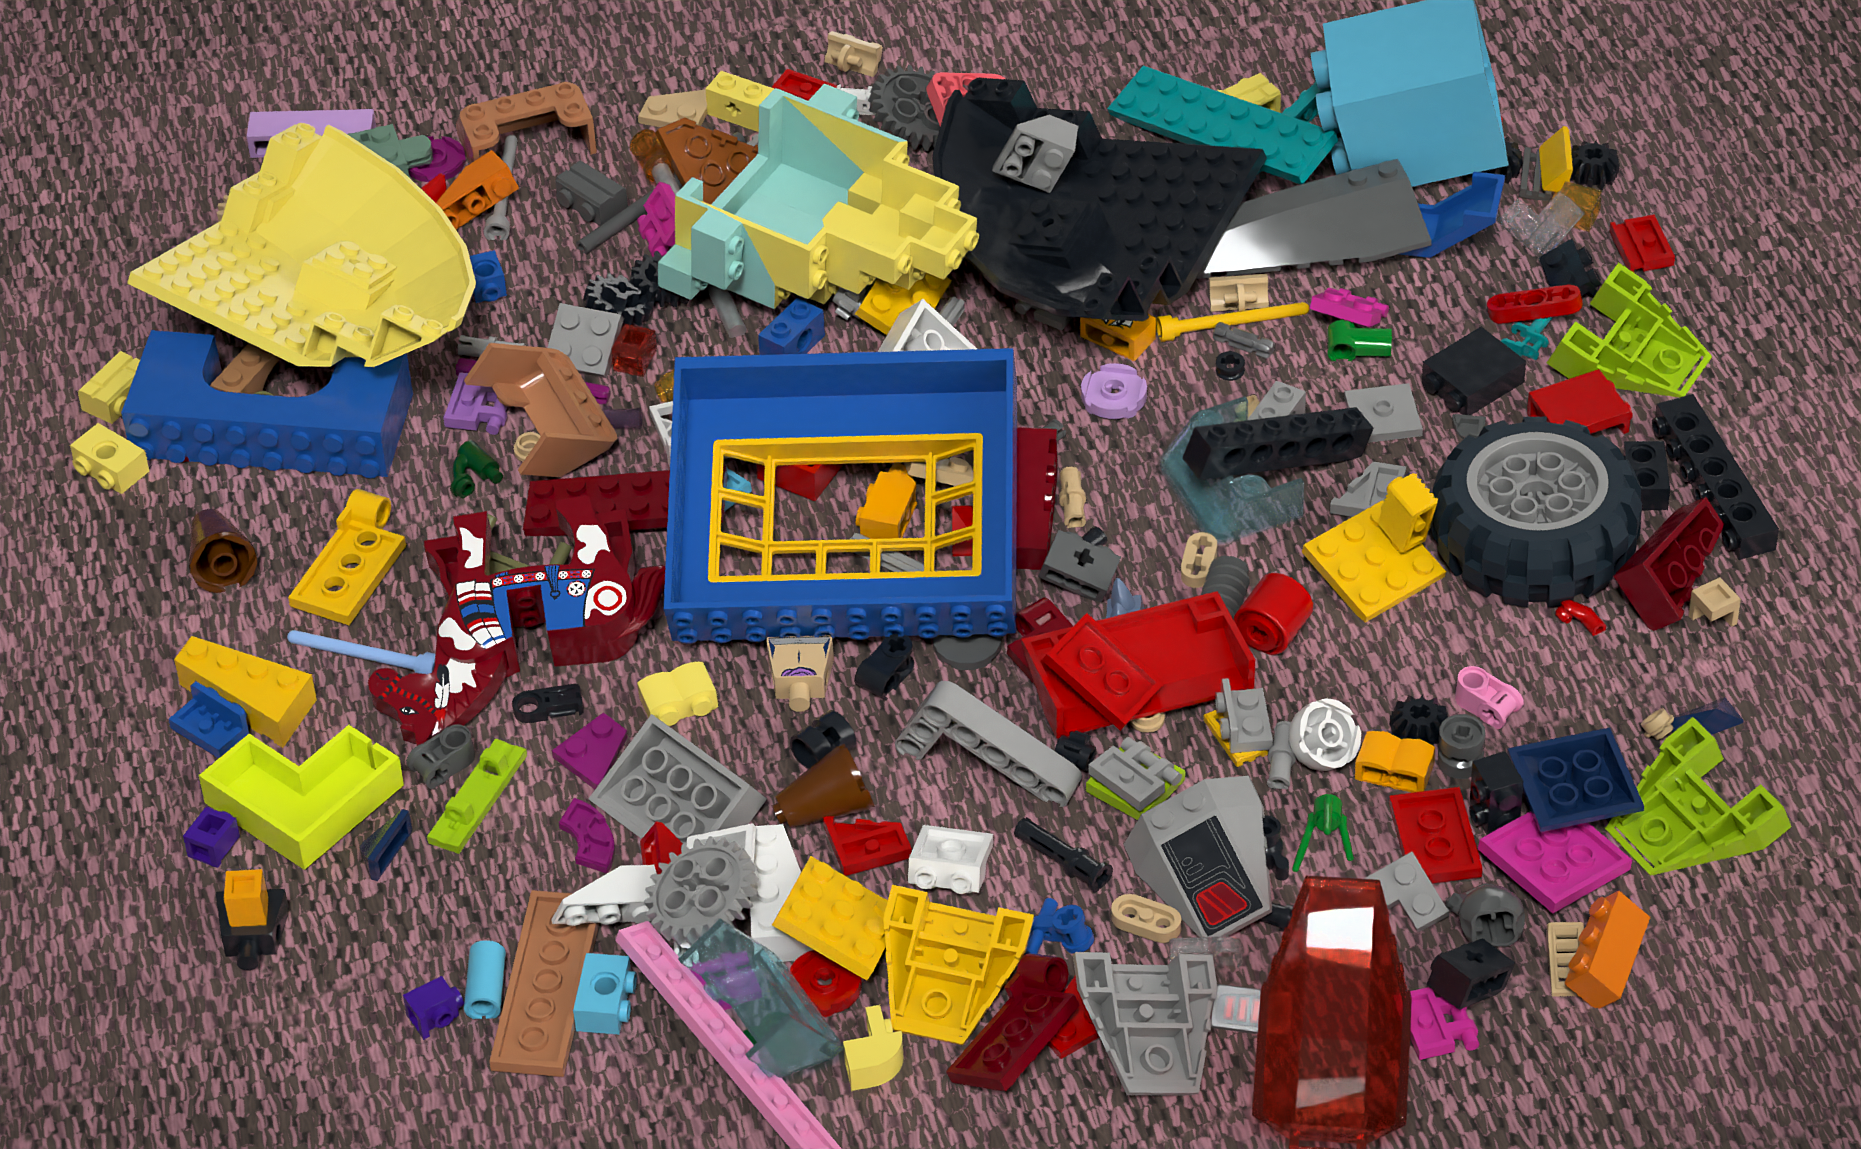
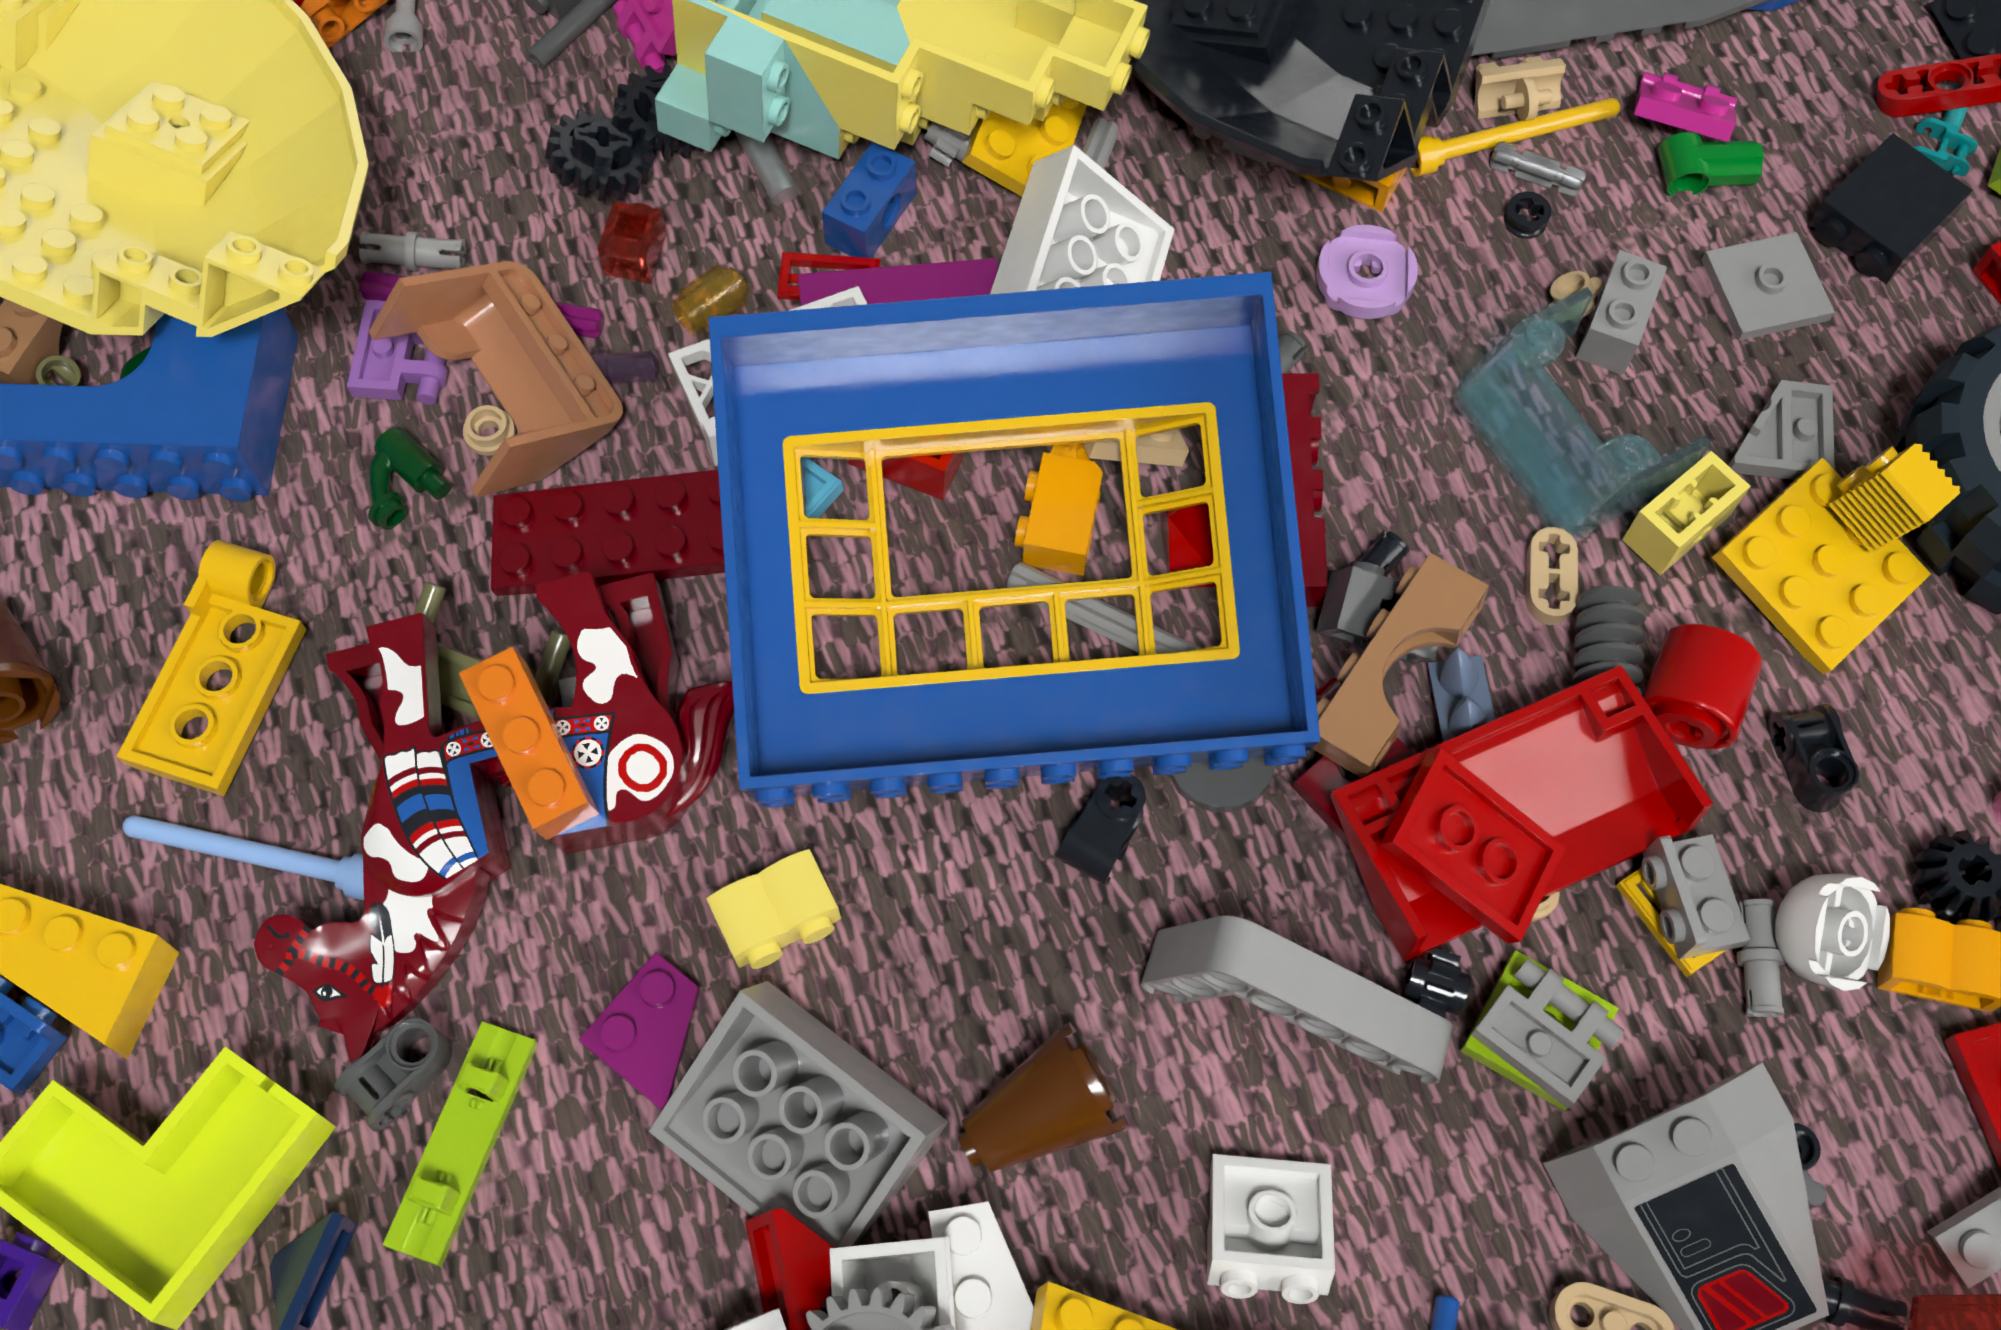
camera: 10 degrees left, 20 degrees up
(488, 277) = (392, 122): blue brick -> none
(543, 574) = (528, 743): none -> orange brick
(550, 701) = (569, 933): black piece -> none
(586, 337) = (554, 228): light grey plate -> none
(593, 834) = (663, 1211): magenta tile -> none
(800, 668) = (965, 843): tan torso -> none
(822, 737) = (1026, 993): black wheel -> none
(866, 843) = (1123, 1199): red wing -> none
(1072, 497) = (1340, 473): tan pin -> none
(1075, 861) = (1473, 1209): black pin -> none
(1101, 553) = (1433, 610): none -> medium nougat arch
(1277, 443) = (1651, 372): black brick -> none
(1287, 526) = (1685, 512): none -> light yellow brick
(1327, 818) = (1862, 1080): green plant -> none
(1342, 660) = (1810, 747): none -> black piece
(1468, 425) = (1900, 303): dark grey tile -> none

